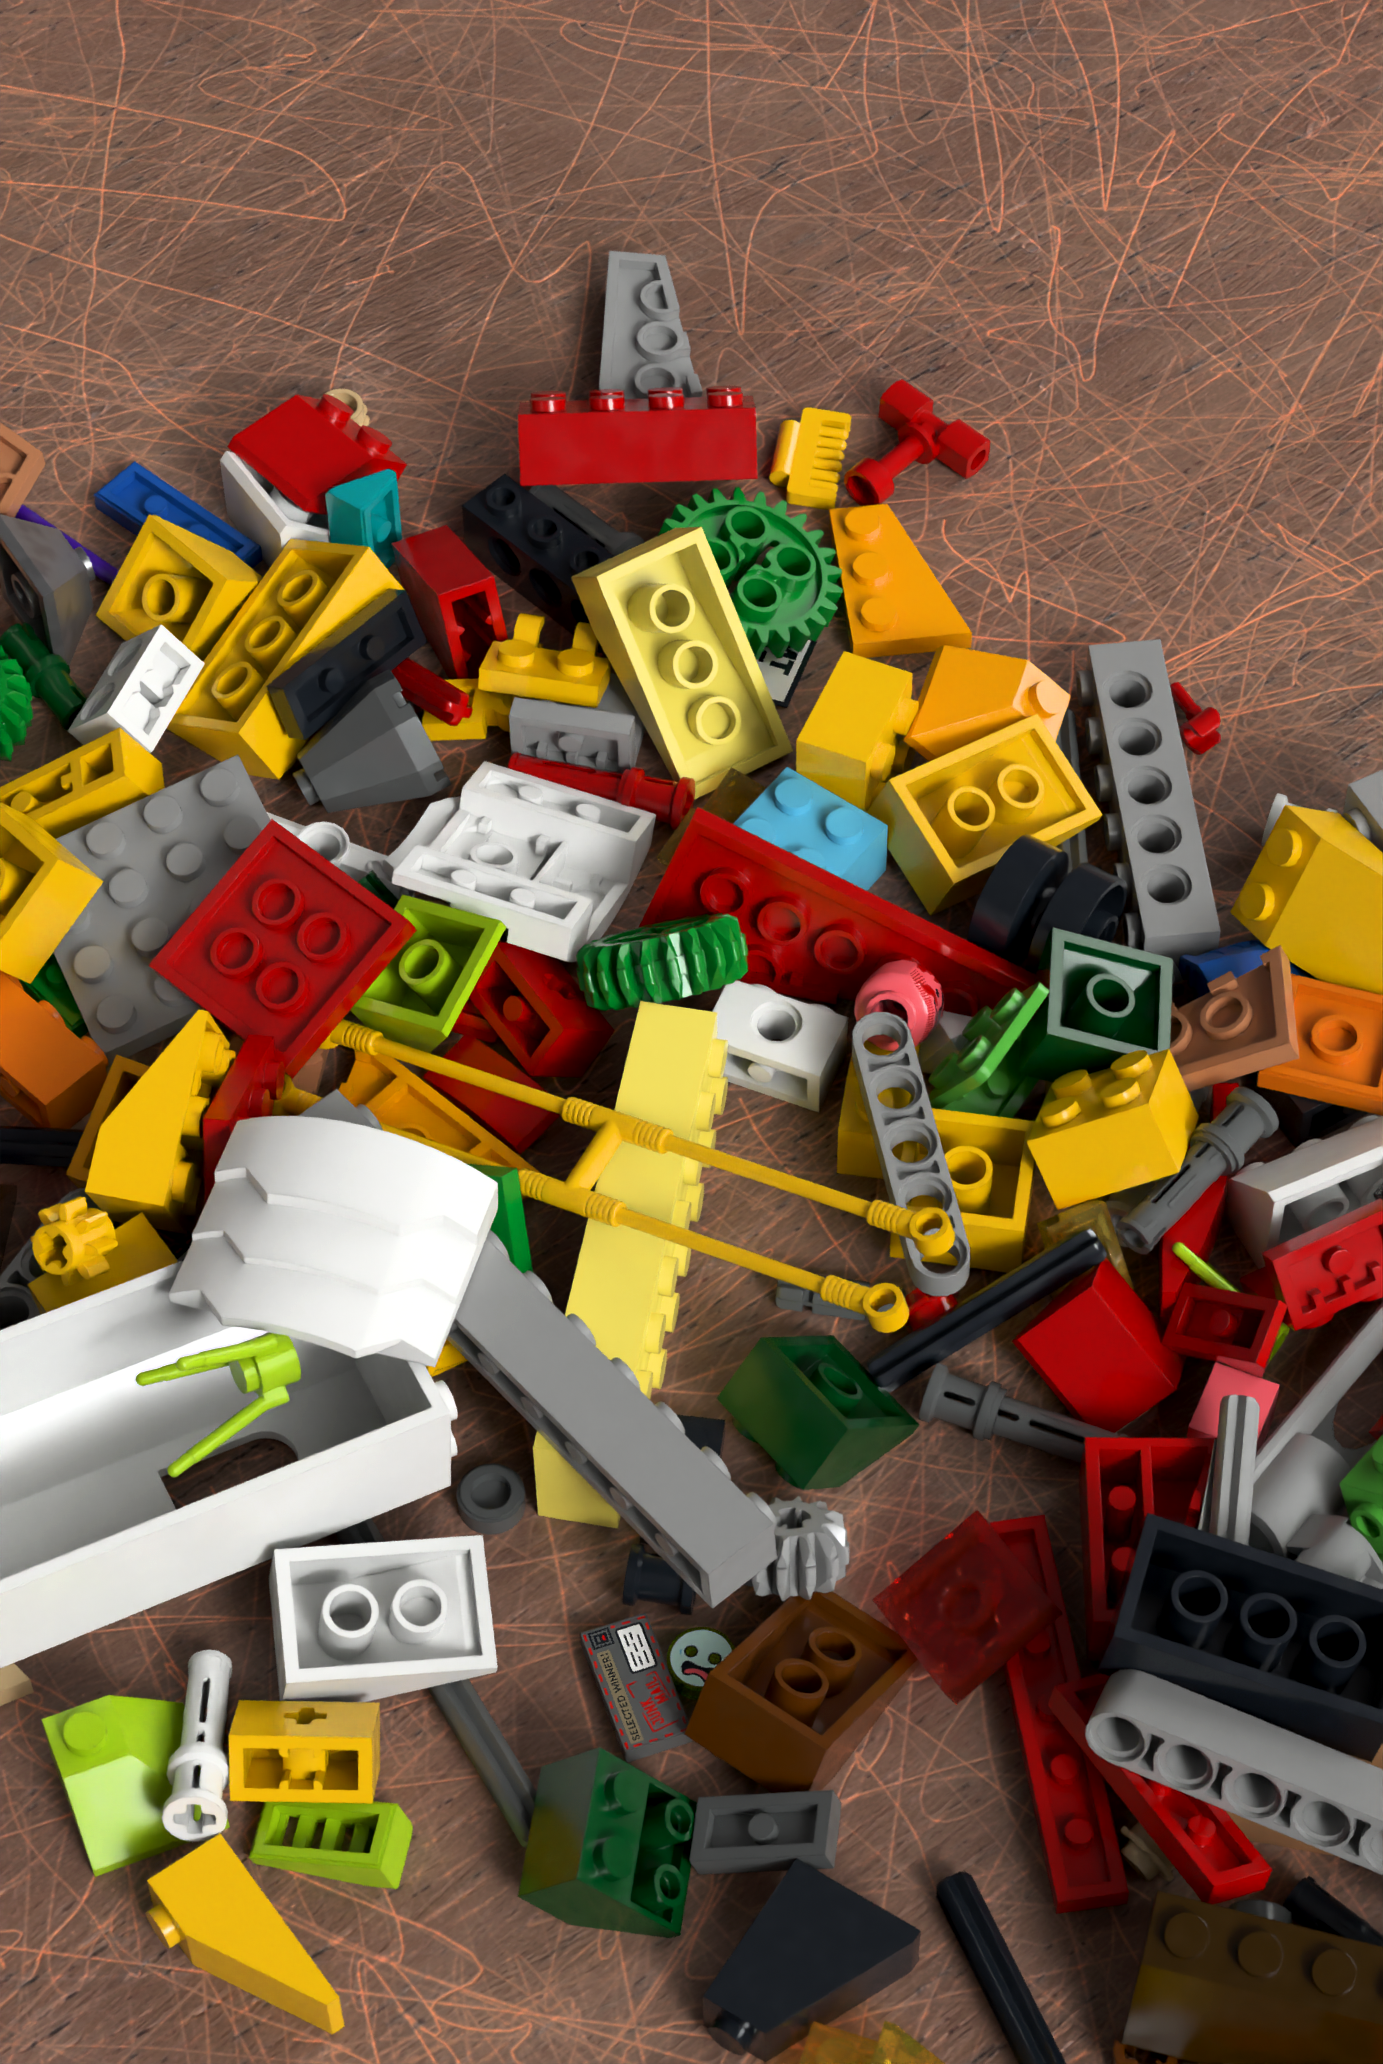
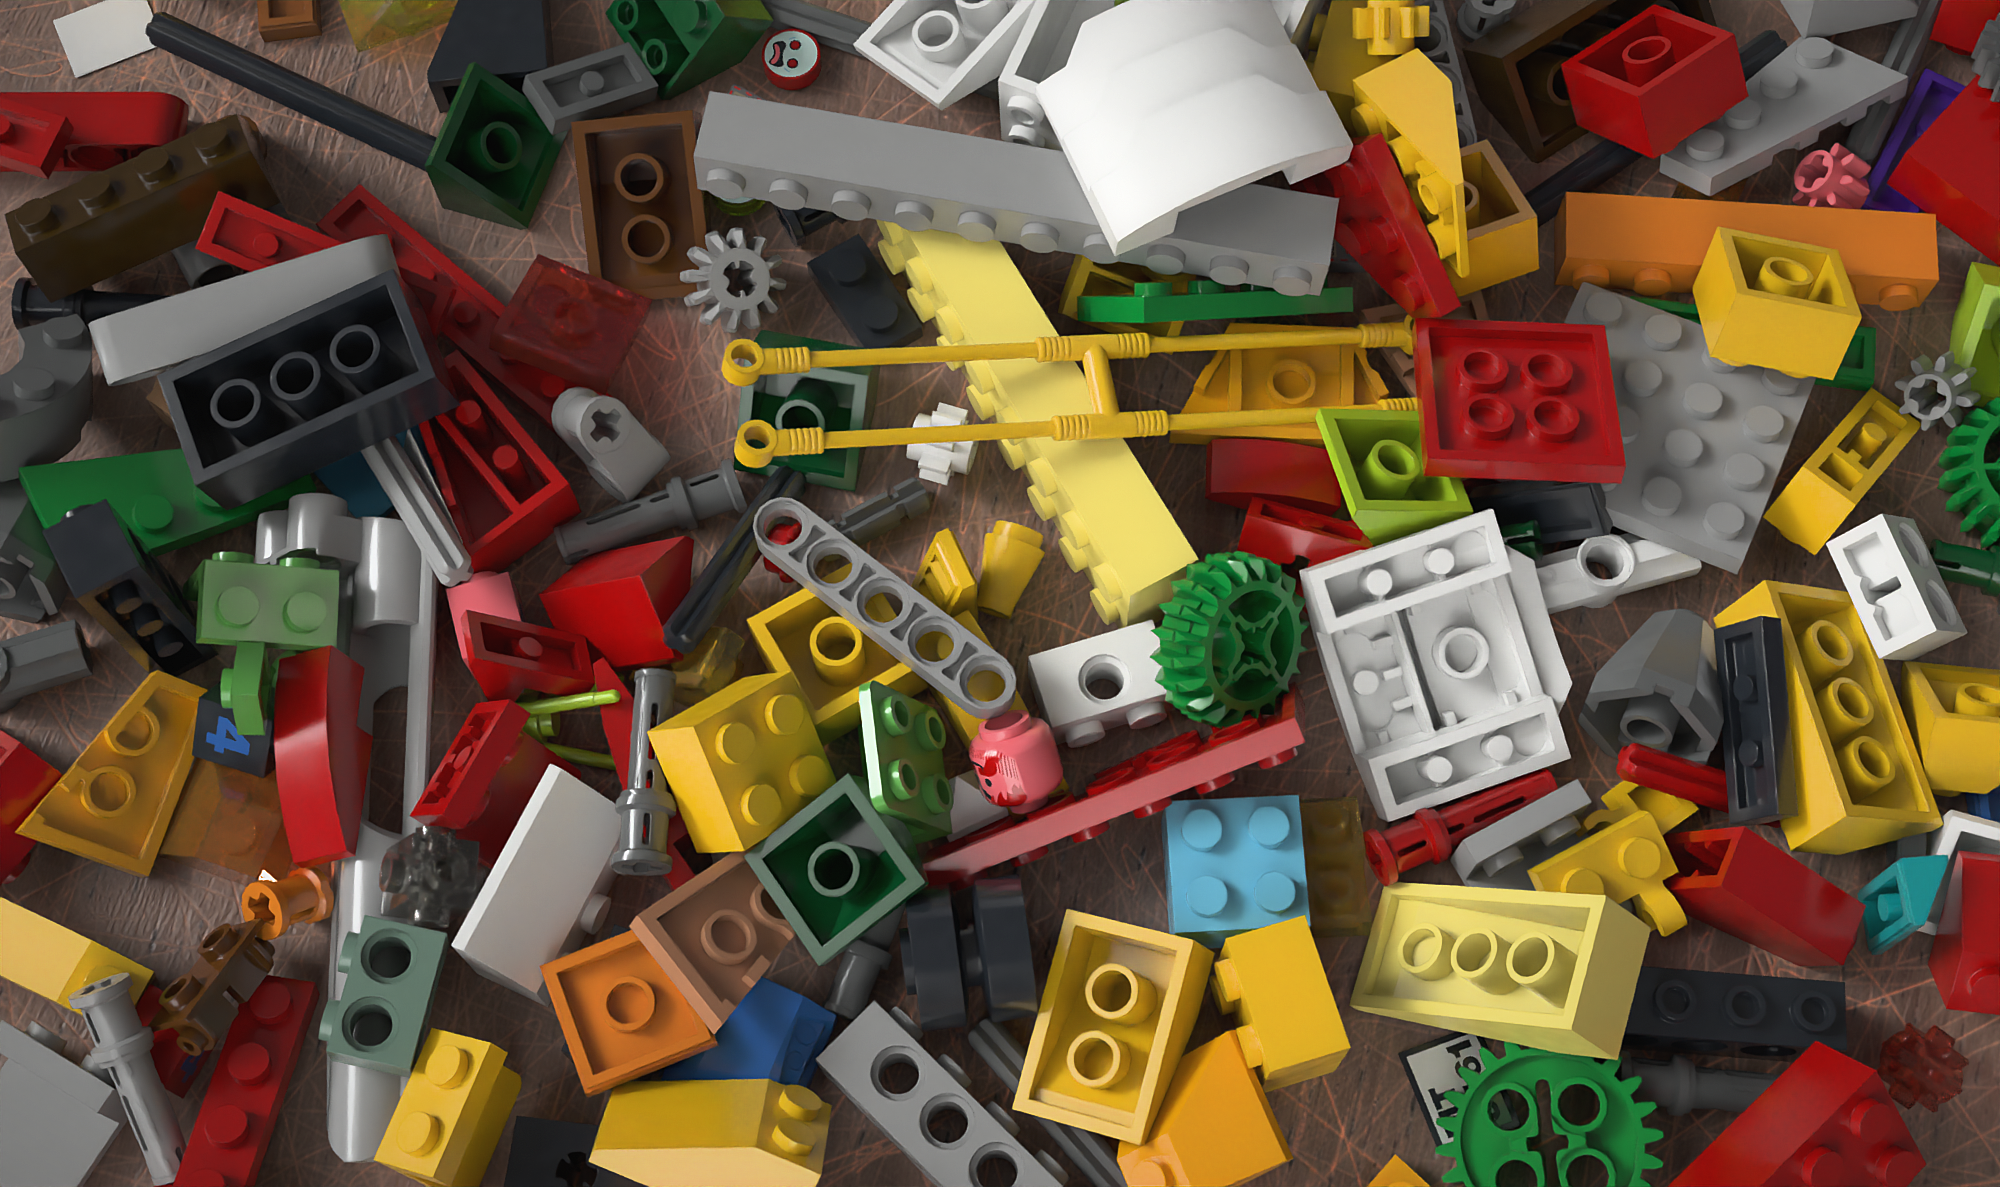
camera: 140 degrees right, 15 degrees up
(468, 469) = (1922, 1067): none -> clear red gear
(546, 1739) = (791, 59): none -> tile
(731, 1298) = (942, 460): none -> white gear
(754, 1198) = (1007, 566): none -> yellow cone
(839, 1165) = (947, 577): none -> yellow slope
(912, 1842) = (492, 152): none -> dark green slope
(1012, 1485) = (608, 441): none -> light grey piece

